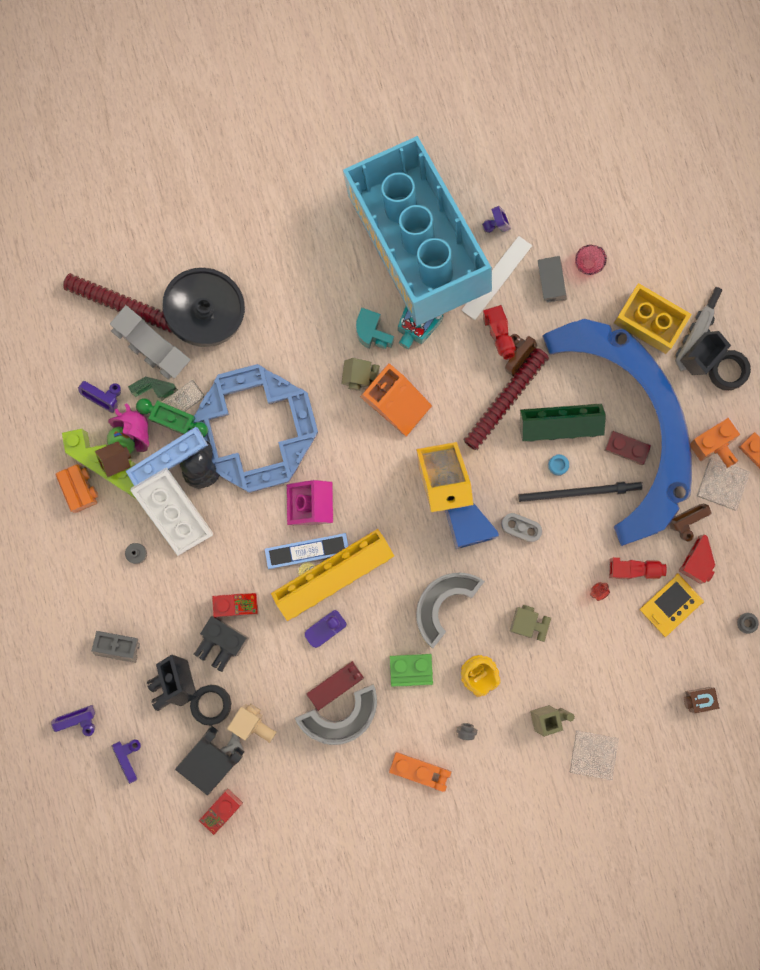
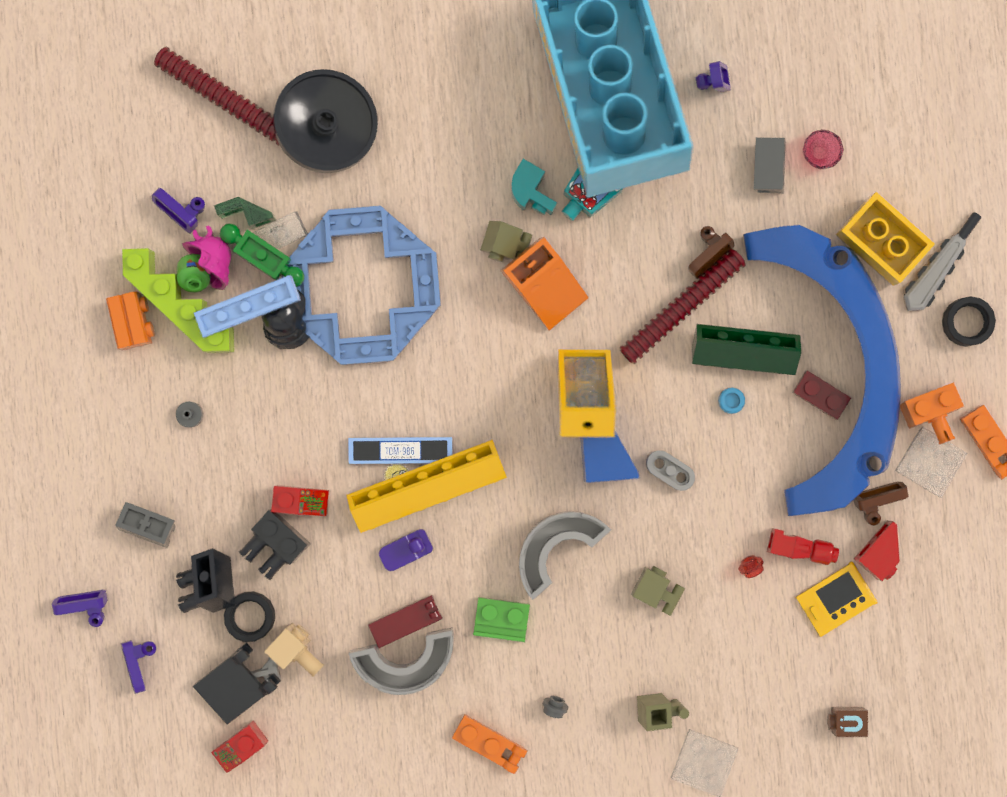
camera: 10 degrees right, 5 degrees up
(113, 458) = (181, 295): reddish brown brick -> none
(149, 343) = (251, 157): light grey brick -> none
(171, 511) = (242, 372): white tile -> none
(310, 503) = (414, 392): dark pink slope -> none
(480, 675) = (584, 642): yellow hair -> none
(498, 326) = (690, 216): red piece -> none
(499, 275) = (706, 145): white sticker -> none
(619, 487) = (802, 443): black bar -> none
(705, 353) = (942, 295): black panel -> none
(754, 623) = (932, 642): dark grey plate -> none

